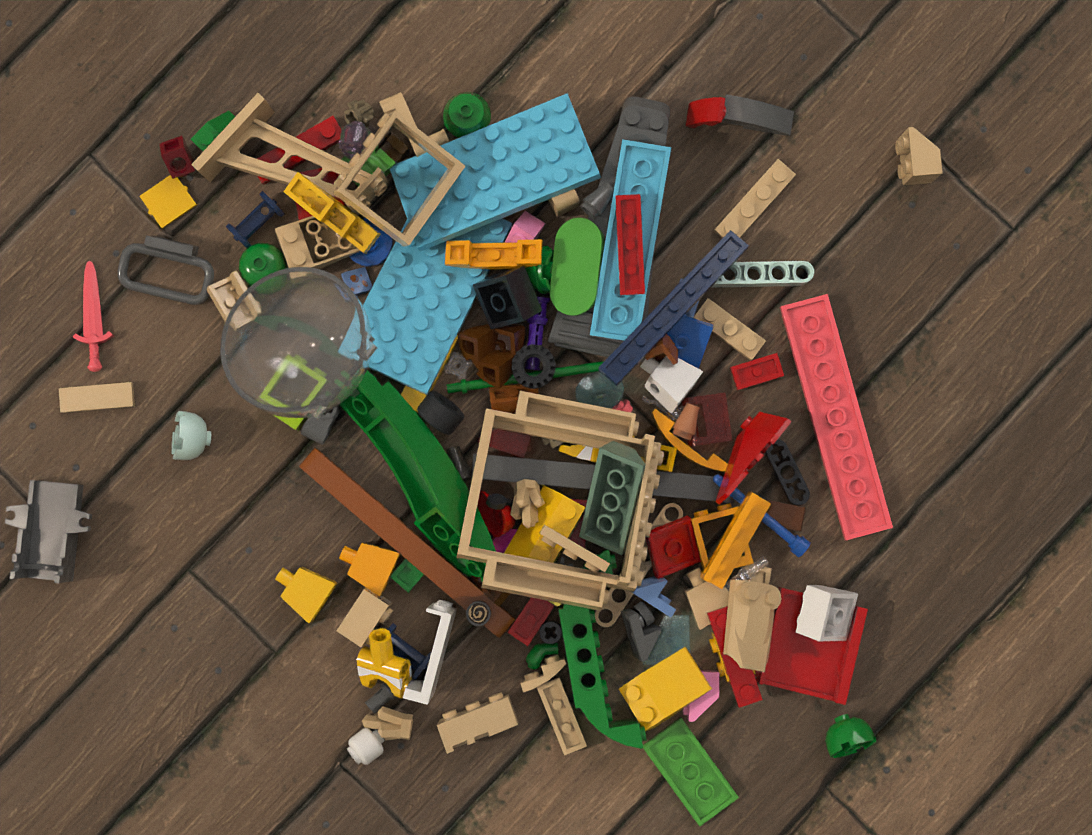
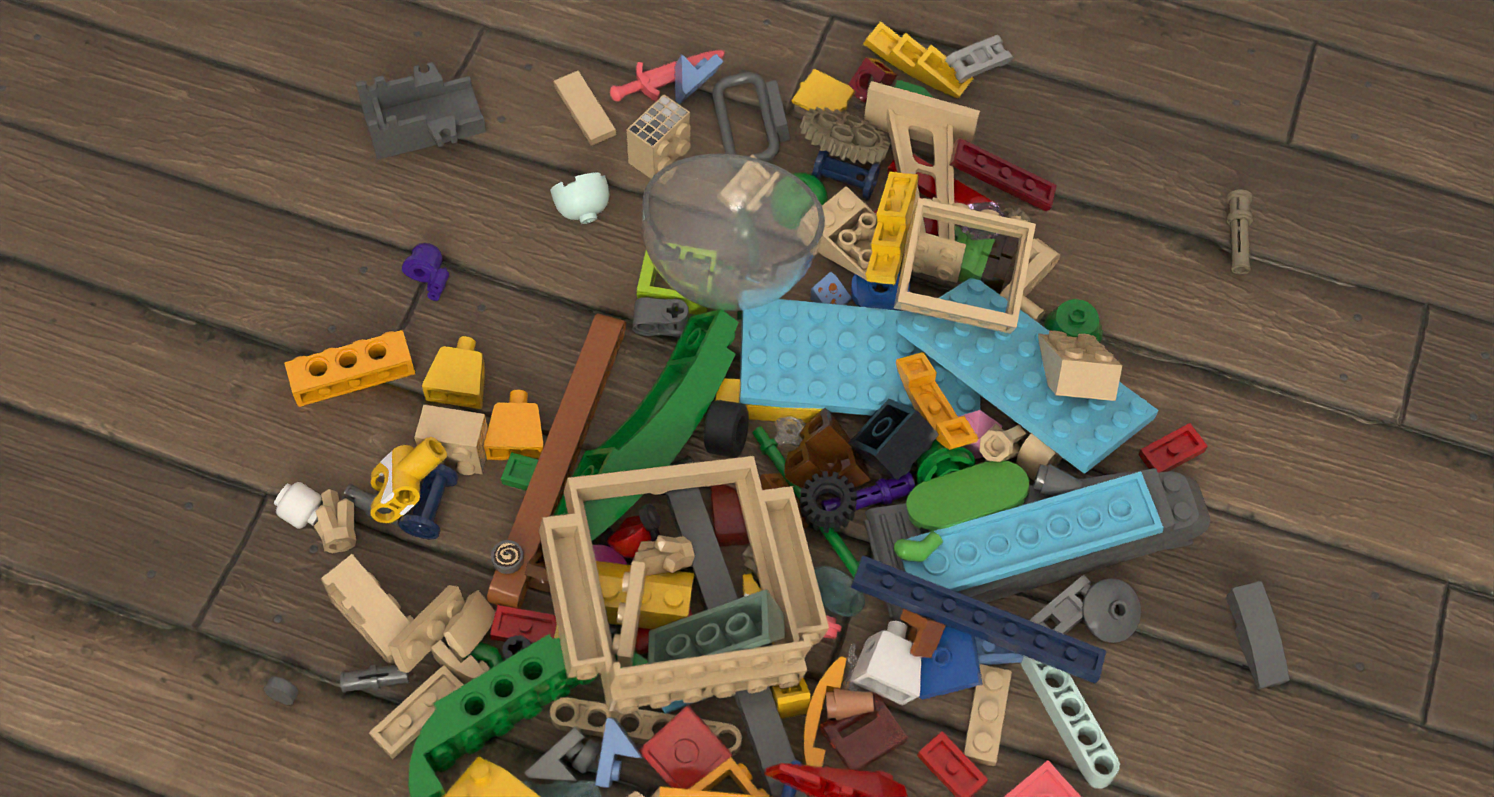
camera: 65 degrees right, 25 degrees down
(110, 303) = (691, 78): none -> medium blue slope
(161, 353) = (658, 136): none -> tan brick
(170, 110) = (915, 60): none -> yellow slope
(192, 60) = (980, 58): none -> light grey plate
(196, 580) = (425, 266): none -> dark purple piece
(224, 206) = (844, 135): none -> dark tan gear
(275, 633) = (341, 380): none -> light orange brick
(313, 100) = (1003, 174): none -> dark red tile
(421, 690) = (440, 517): white panel -> none
(505, 804) = (281, 690): none -> dark grey tile
(508, 688) = (425, 629): none -> tan plate
(513, 135) = (1079, 366): none -> tan slope
(519, 659) = (469, 625): none -> tan slope
(523, 737) = (372, 678): none -> dark grey pin
(547, 222) = (1000, 444): none -> tan rock
(595, 96) = (1173, 449): none -> red plate
(606, 326) = (916, 550): none -> bright green arm
(630, 244) = (1024, 531): red plate -> none
(681, 237) = (1065, 608): none -> light grey plate
(690, 212) = (1099, 610): none -> dark grey dish
(706, 111) = (1228, 570): red slope -> none
(756, 200) = (1160, 681): tan plate -> none

